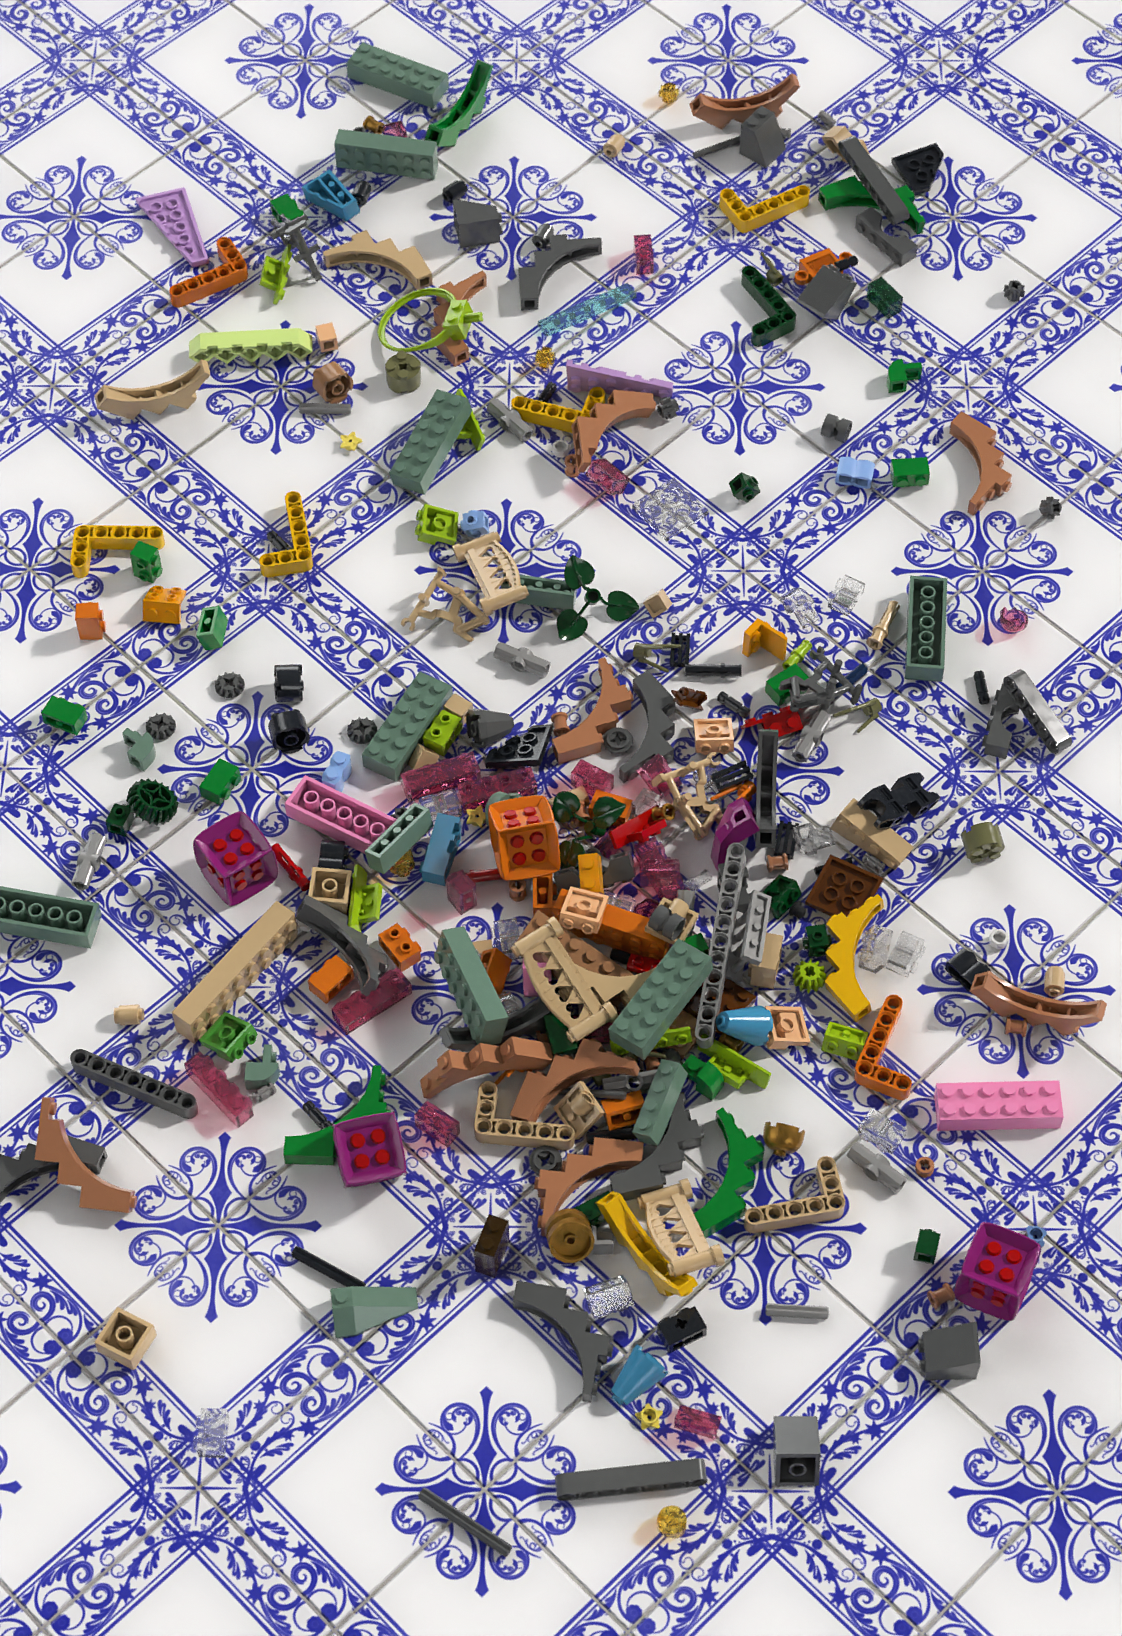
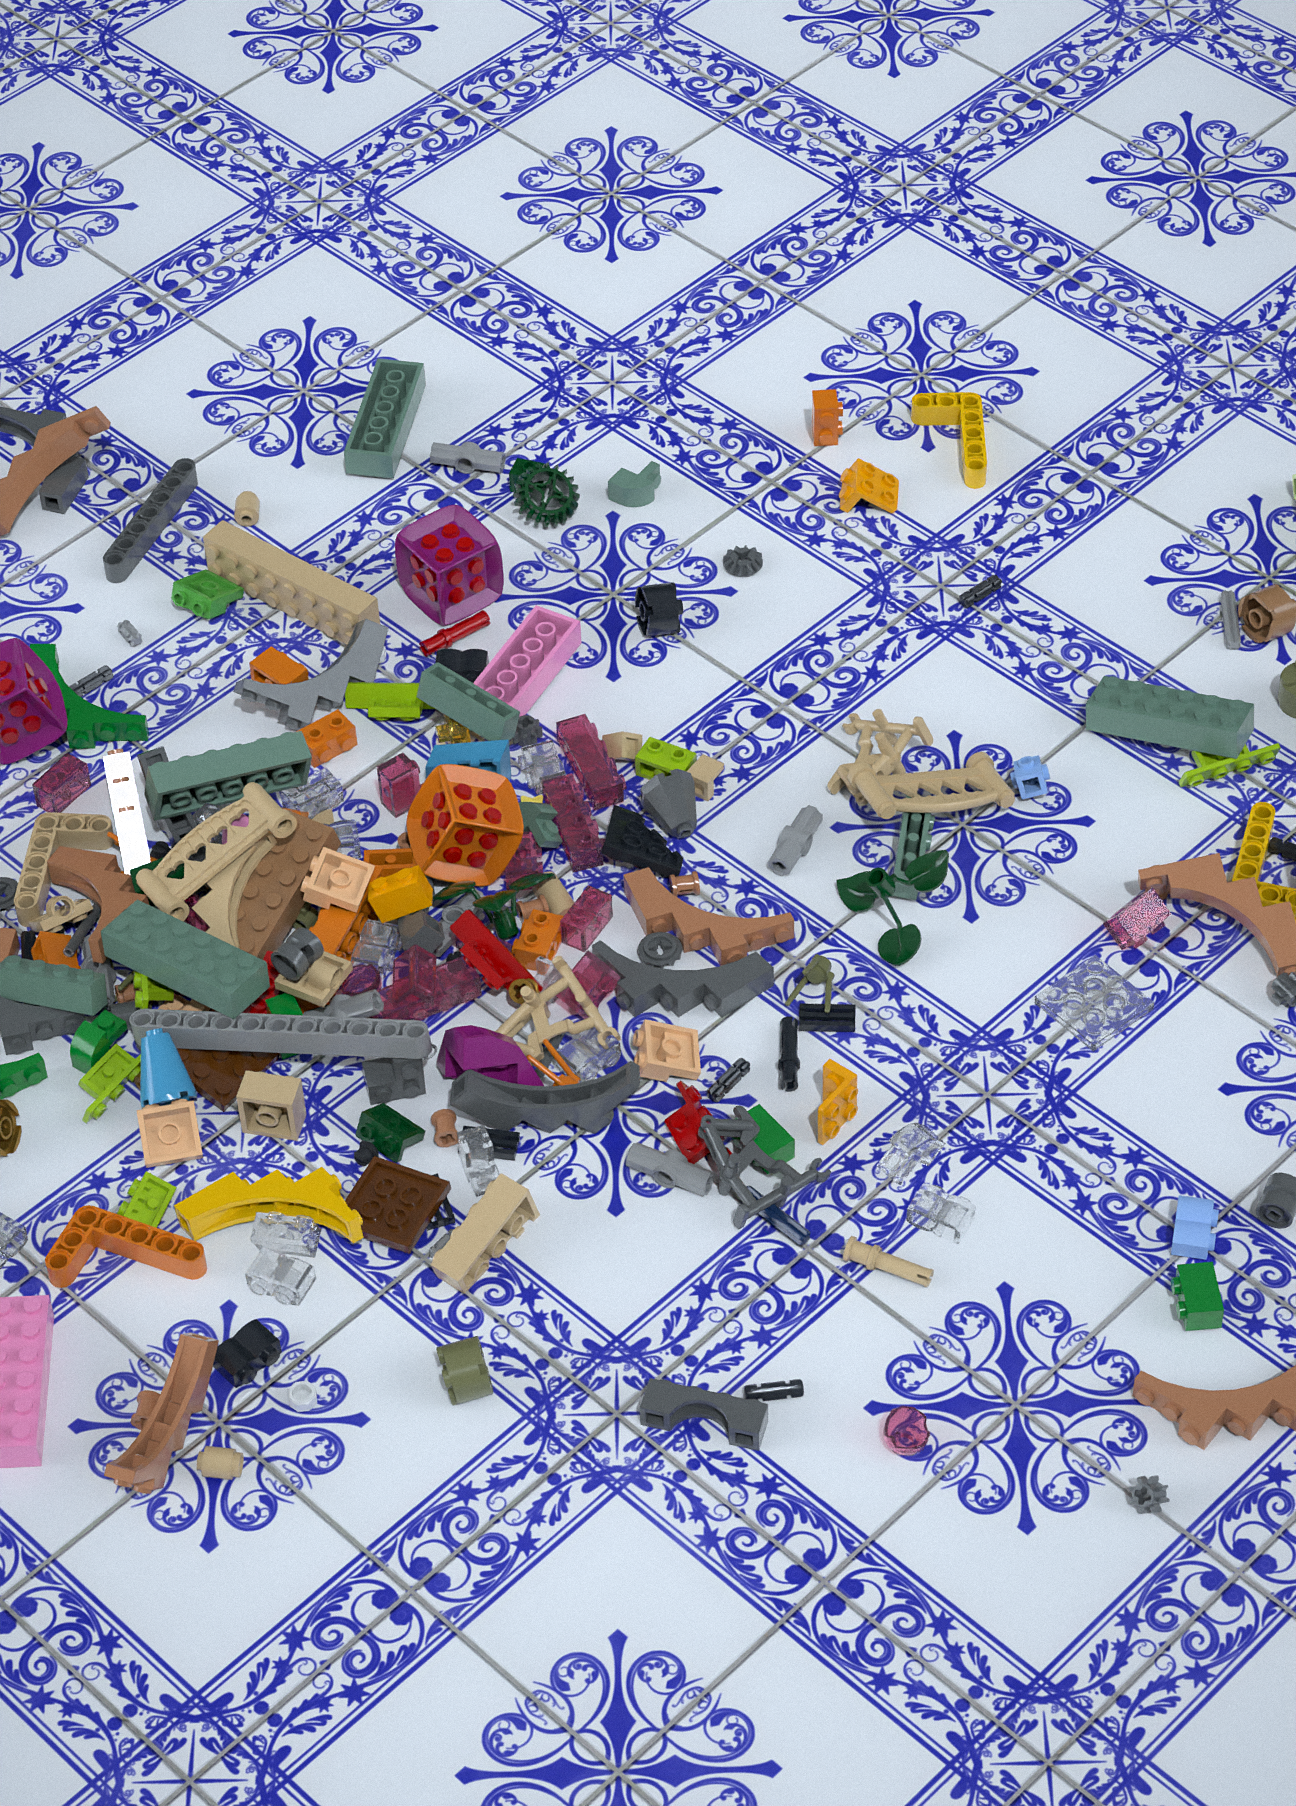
camera: 90 degrees right, 10 degrees down
(64, 715) = (682, 414): green brick -> none
(131, 401) = (1209, 444): tan arch -> none
(146, 562) = (925, 458): green brick -> none
(163, 732) = (684, 507): dark grey gear -> none
(212, 627) = (824, 530): green brick -> none
(219, 1089) = (132, 589): clear pink brick -> none
(220, 782) = (584, 559): green brick -> none
(262, 1073) = (159, 629): sand green brick -> none
(288, 683) = (736, 603): black brick -> none
(296, 559) = (989, 605): yellow beam -> none
(331, 887) = (407, 657): tan brick -> none
(338, 771) = (596, 663): light blue brick -> none
(350, 445) = (1177, 651): light yellow plate -> none
(356, 735) = (665, 694): dark grey gear -> none
(360, 1009) = (246, 718): clear pink brick -> none
(404, 727) = (678, 721): sand green brick -> none
(436, 525) = (1025, 736): lime plate -> none
(510, 420) = (1235, 811): light grey piece -> none
(657, 603) = (907, 986): tan panel -> none
(689, 698) = (726, 1018): reddish brown hinge -> none
(744, 487) = (1137, 1082): dark green brick -> none
(746, 770) = (573, 1046): black tile -> none
(748, 935) = (320, 1074): light grey fence -> none
(797, 655) = (821, 1150): lime pin -> none
(809, 976) = (251, 1161): lime gear -> none
(816, 940) = (303, 1162): dark green brick -> none
(870, 708) = (725, 1240): olive plant -> none
(893, 805) = (521, 1238): black piece -> none
(926, 628) = (876, 1309): sand green brick -> none
(1037, 711) = (710, 1447): beam -> none

